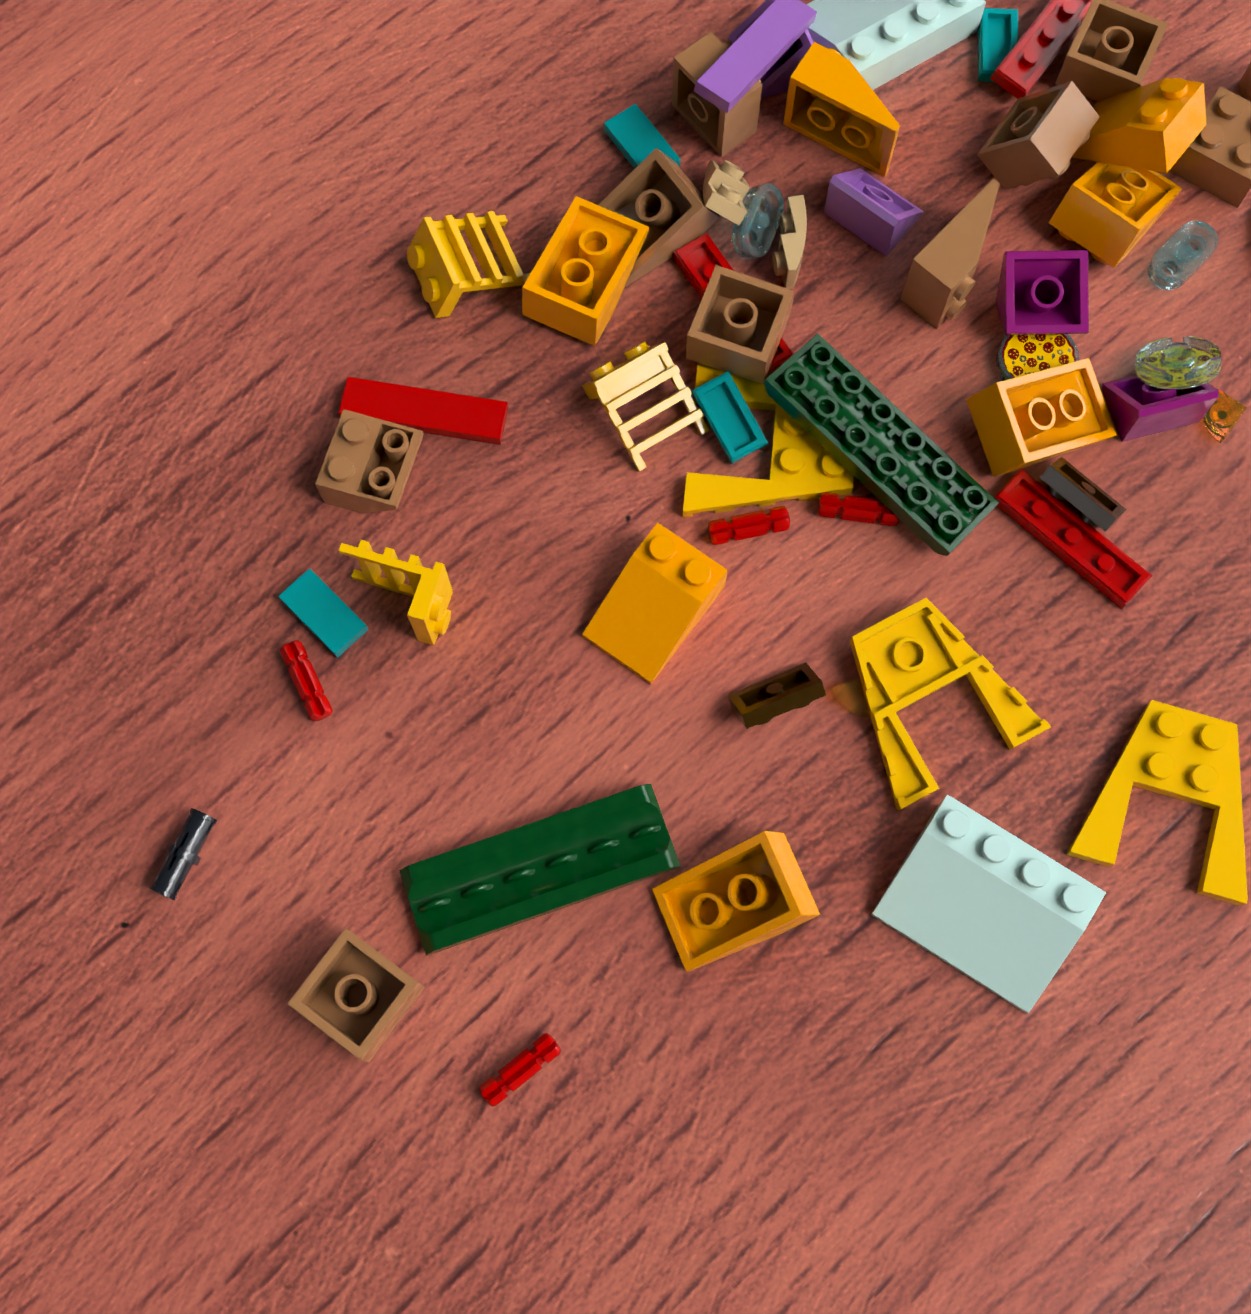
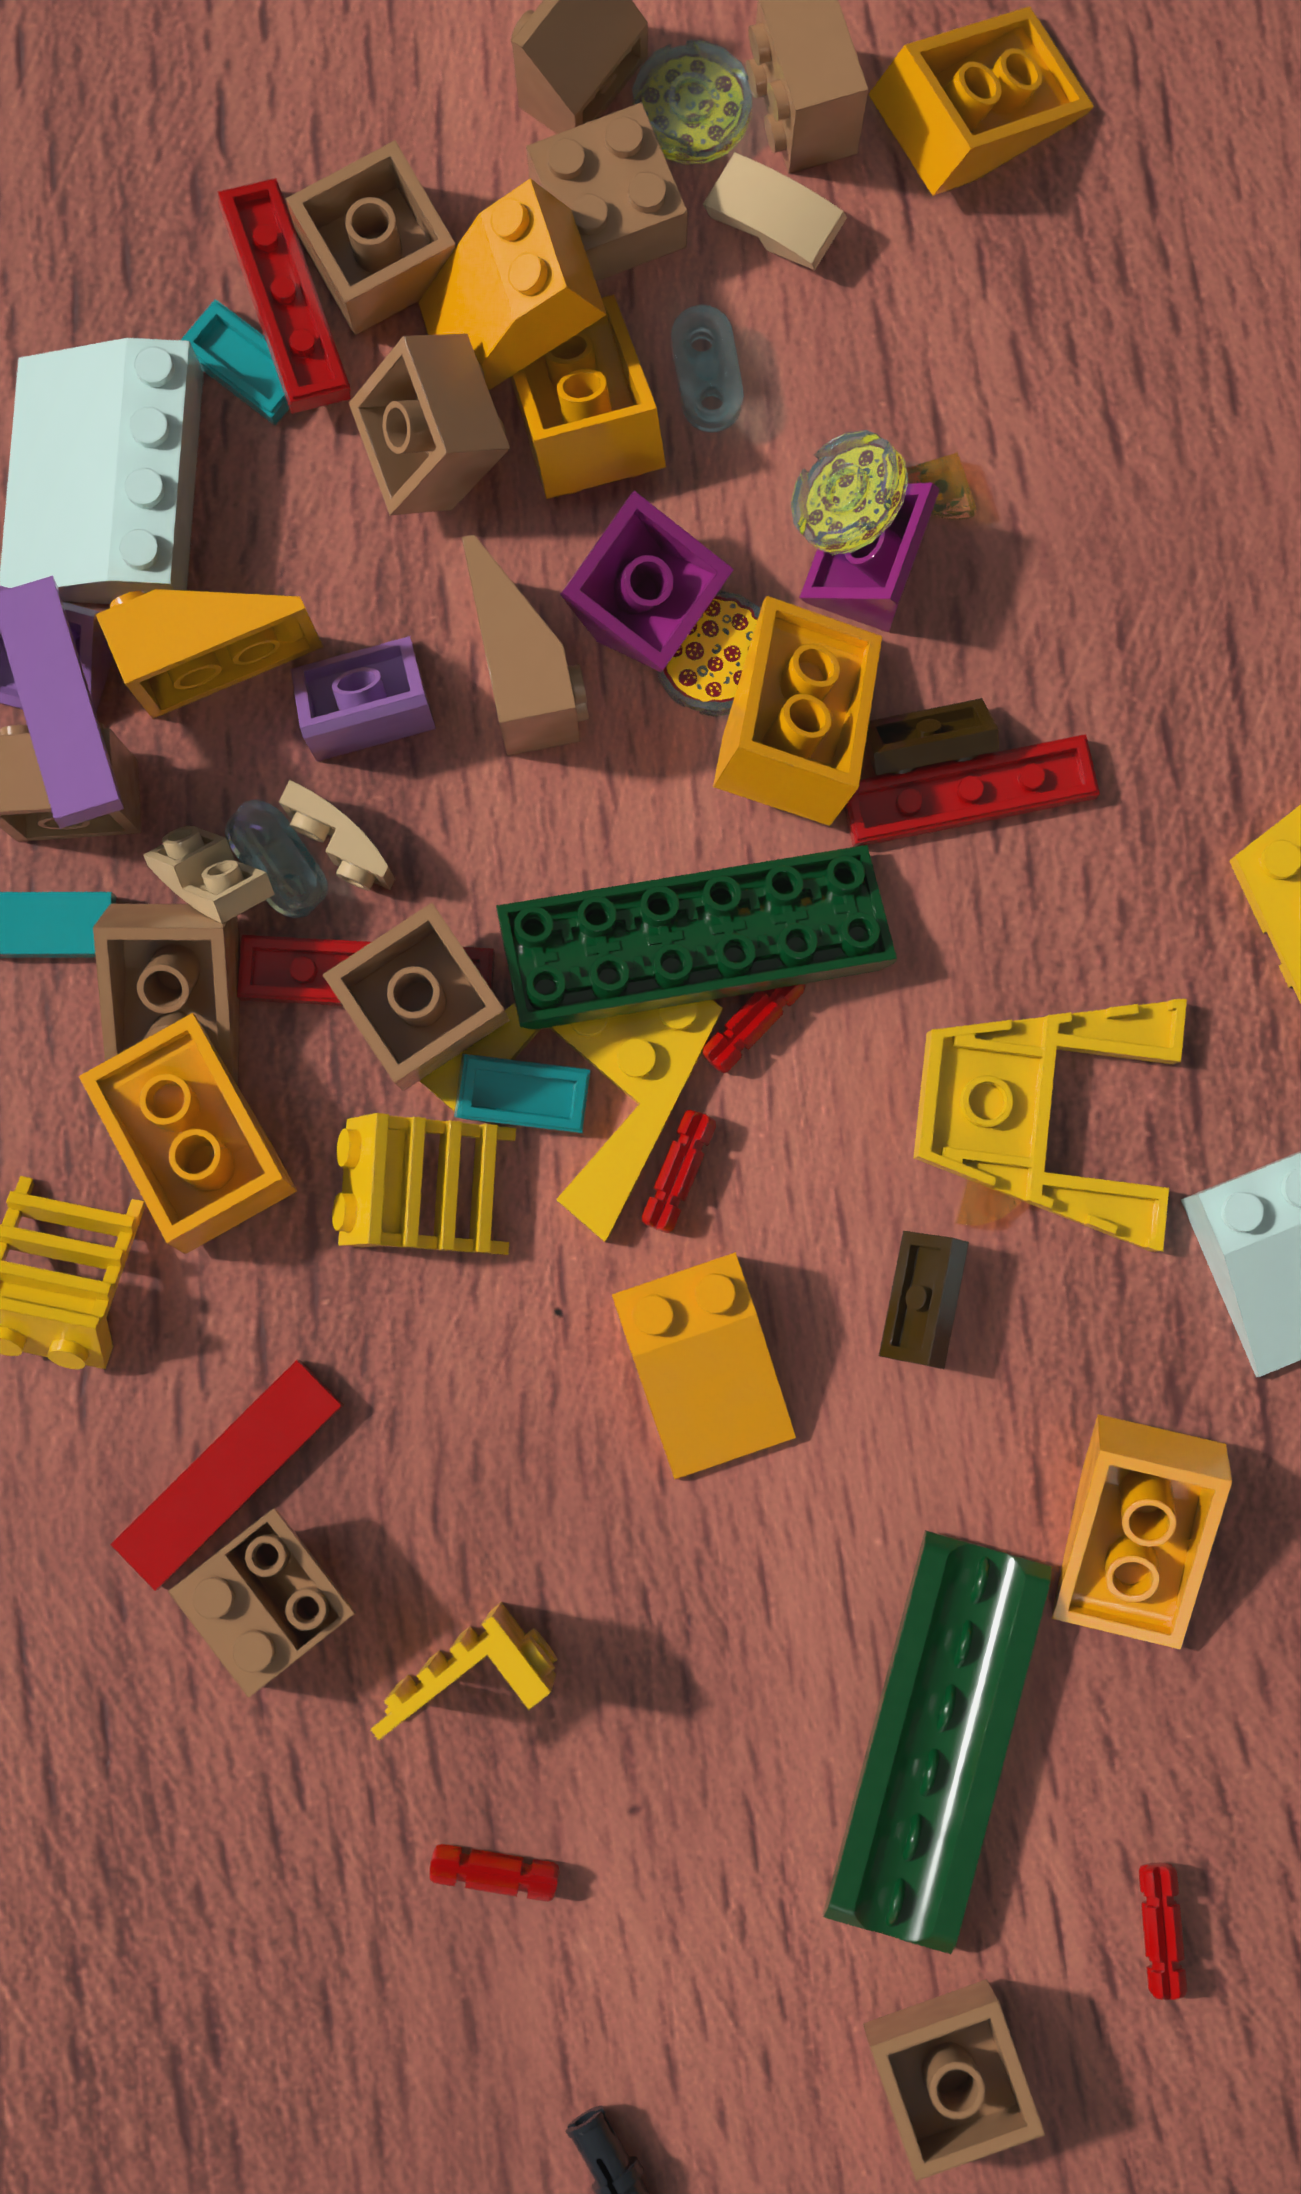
camera: 55 degrees left, 10 degrees up
(323, 613) = (417, 1790): teal tile -> none

